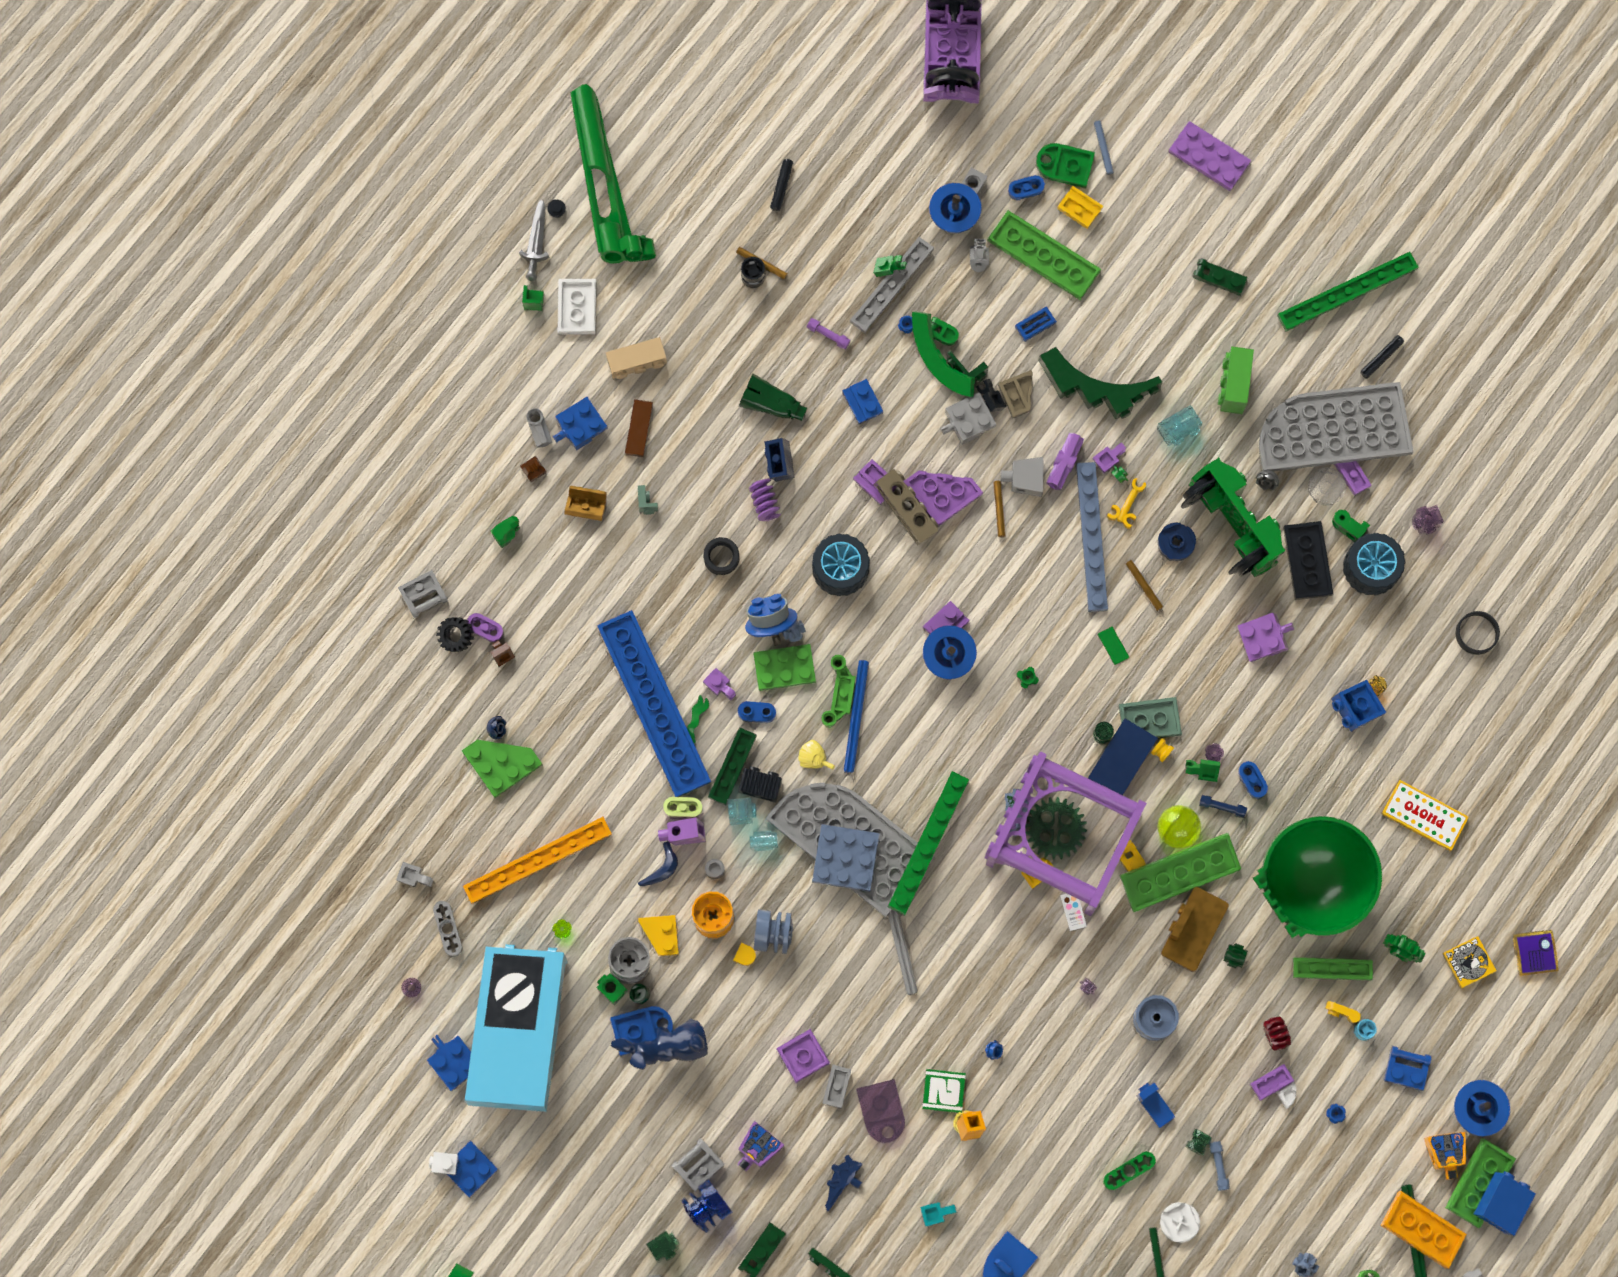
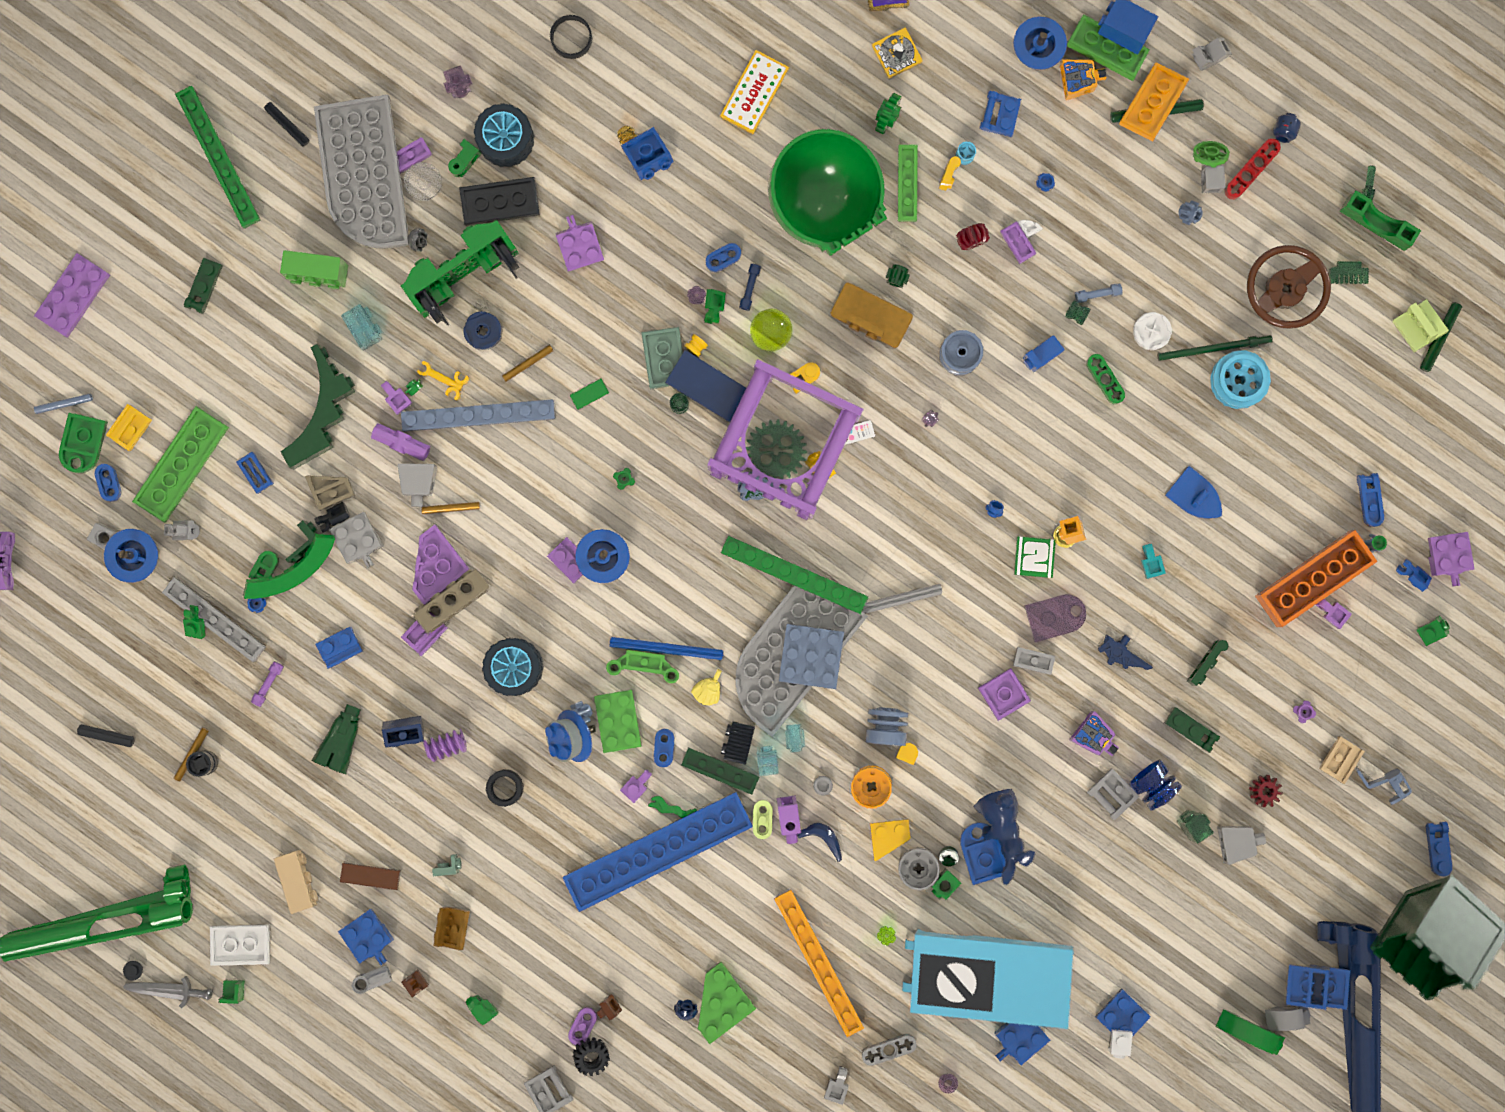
camera: 90 degrees left, 10 degrees up
(1180, 872) = (816, 328): bright green tile -> none

